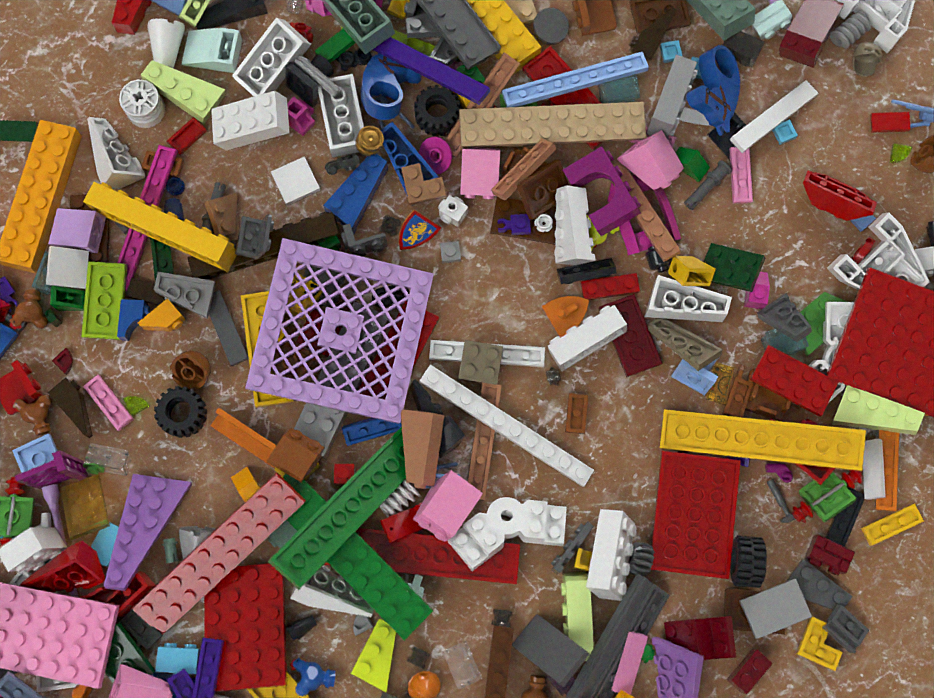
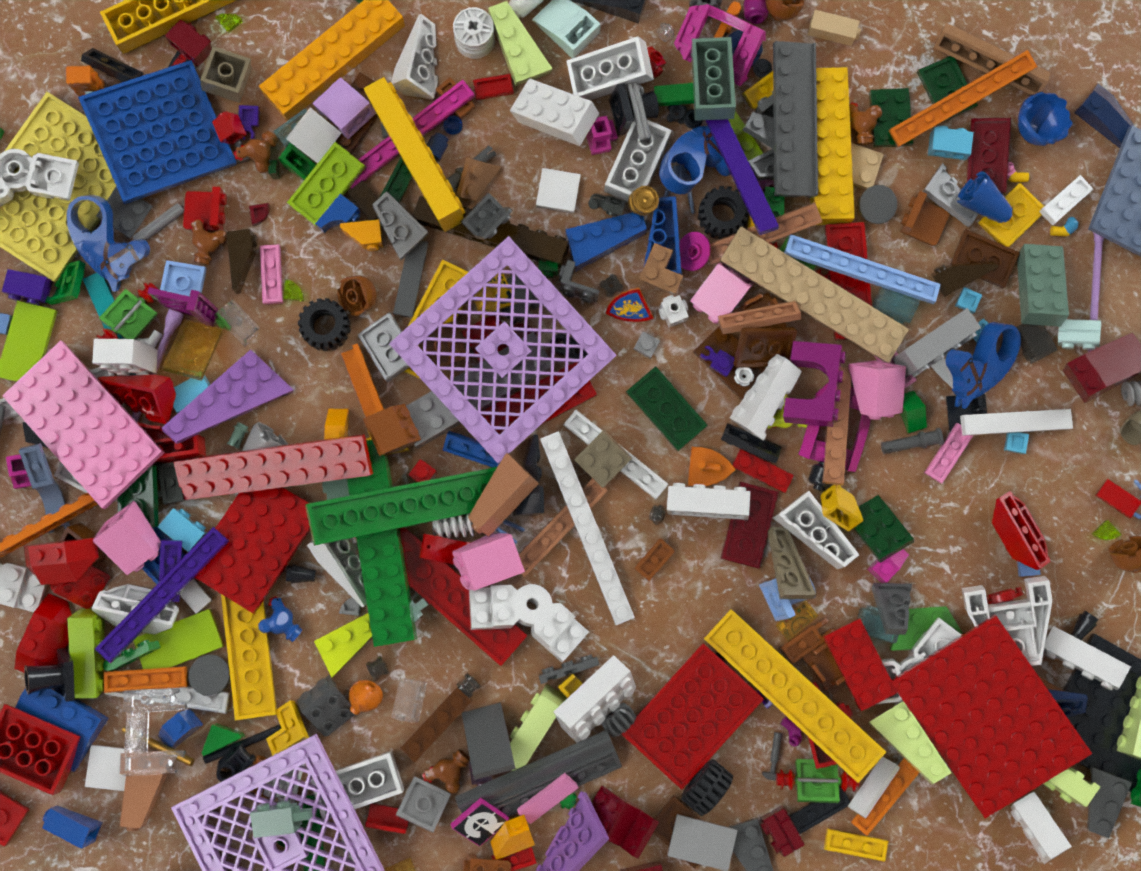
camera: 30 degrees right, 5 degrees up
(237, 398) = (377, 340): none -> light grey tile
(501, 290) = (666, 408): none -> dark green plate

